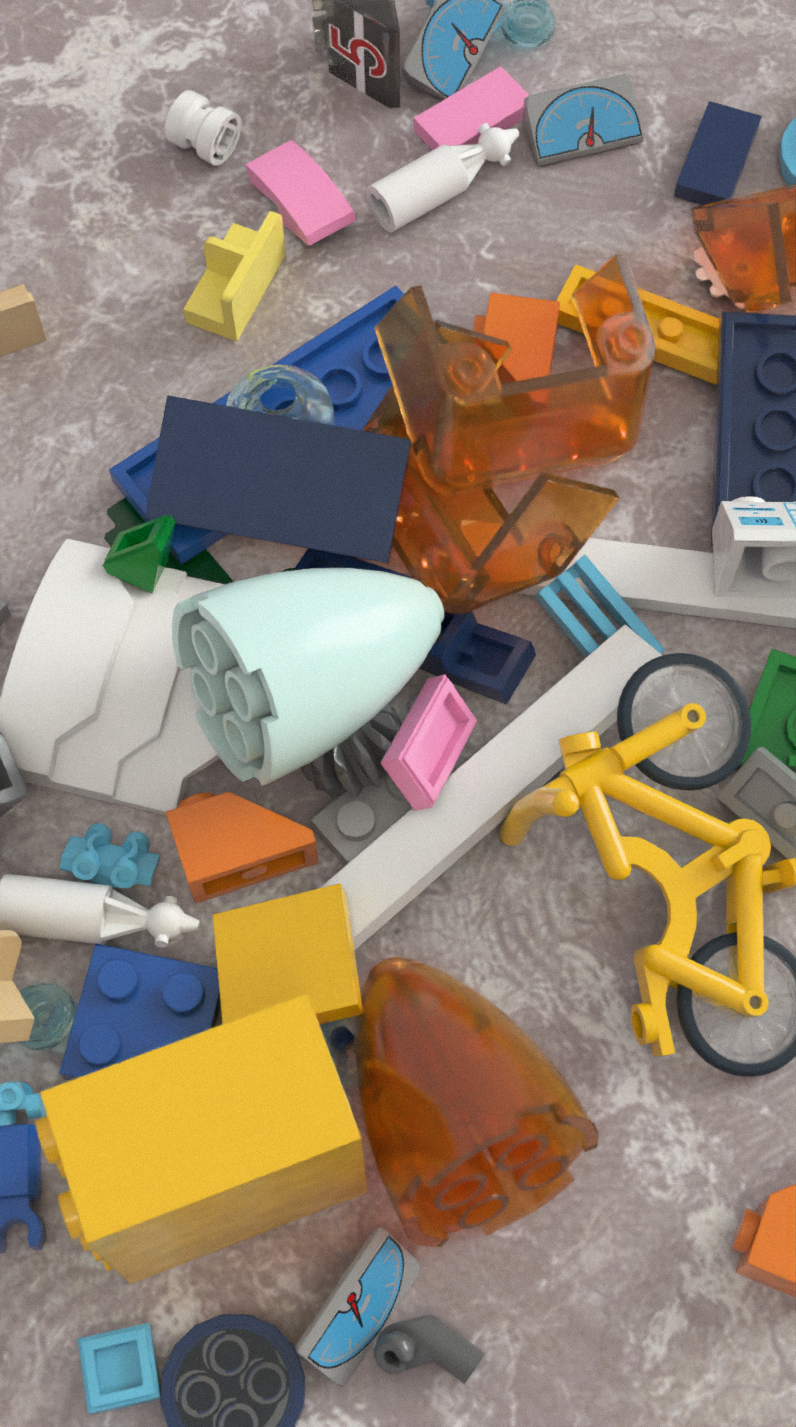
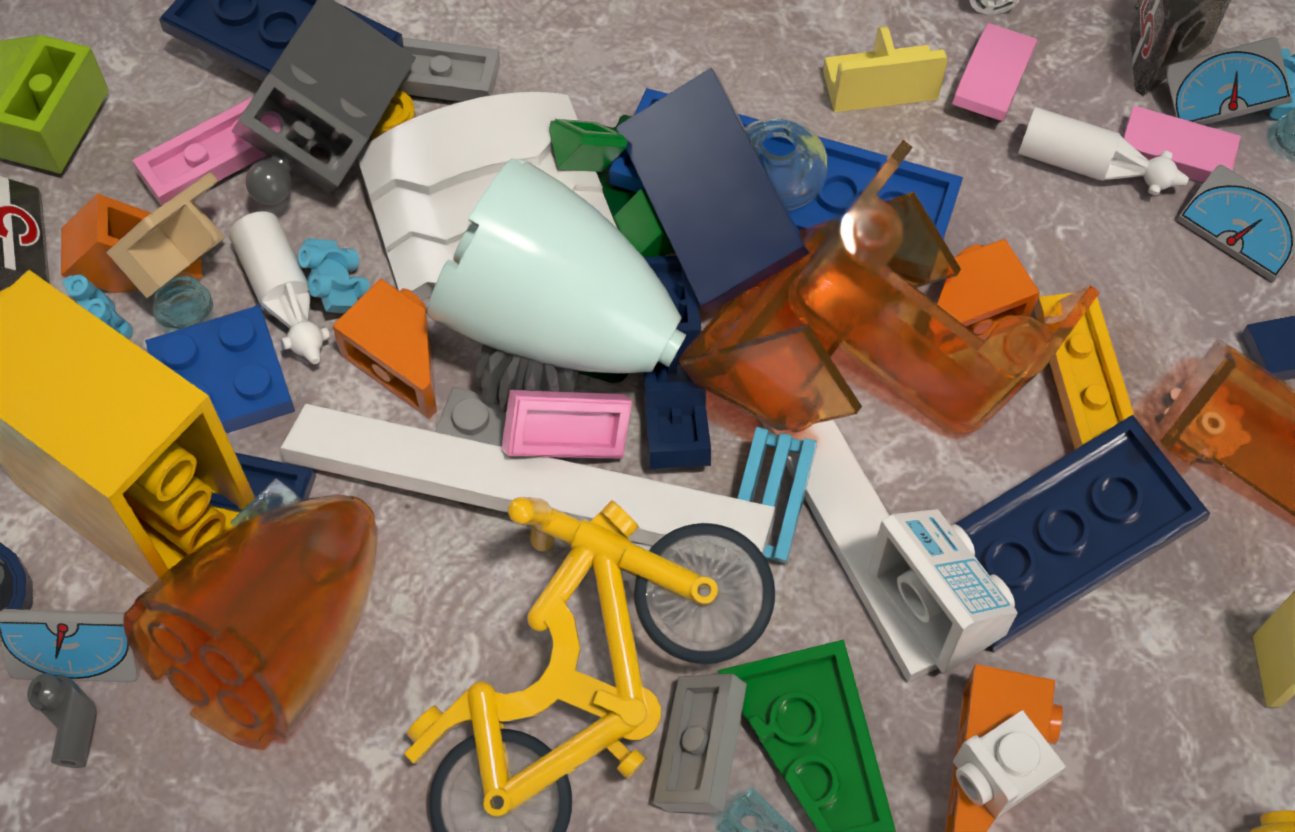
camera: 55 degrees right, 5 degrees down
(252, 558) = (643, 227): none -> green slope
(288, 950) = (311, 431): yellow tile -> none

